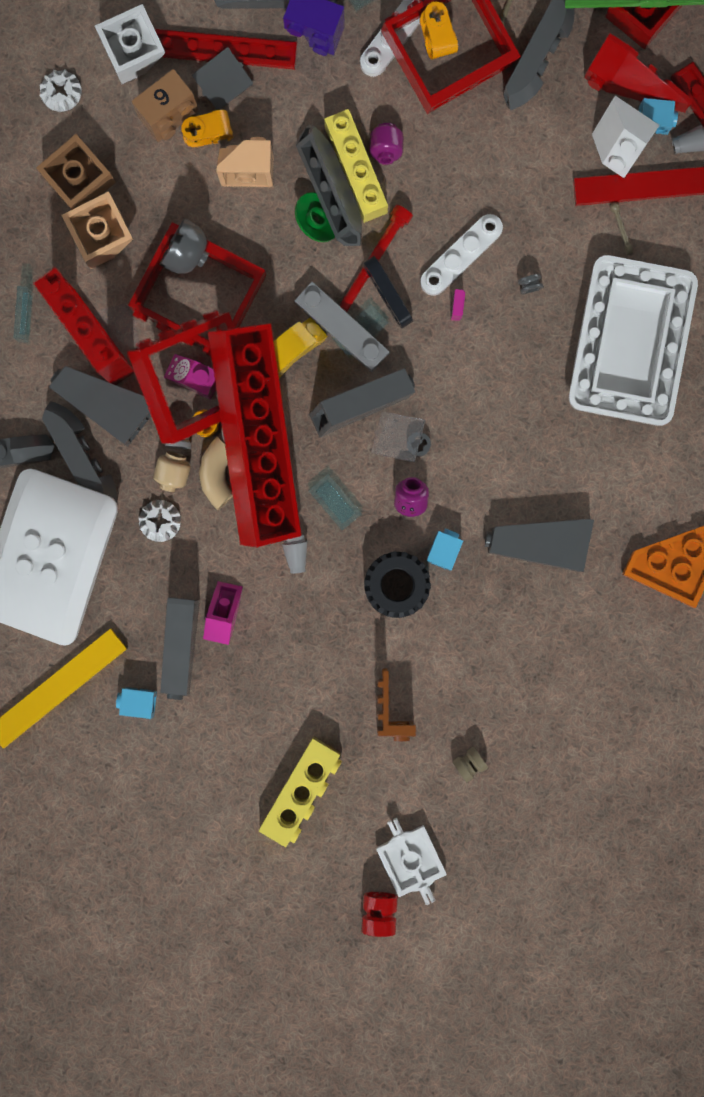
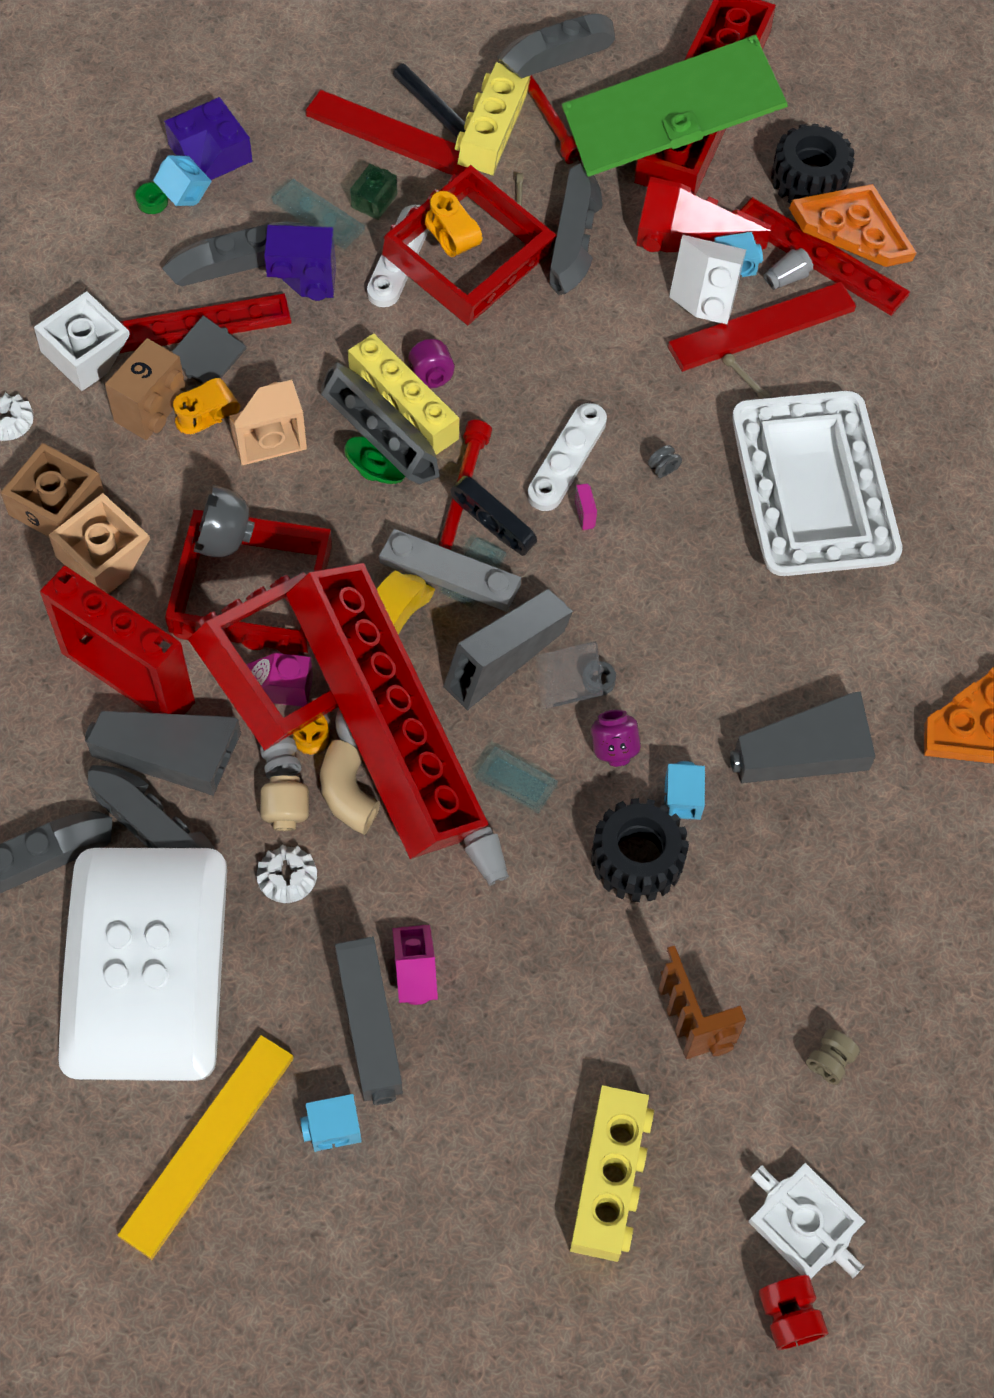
camera: 25 degrees left, 25 degrees down
(23, 314) = (25, 672): clear light blue tile -> none

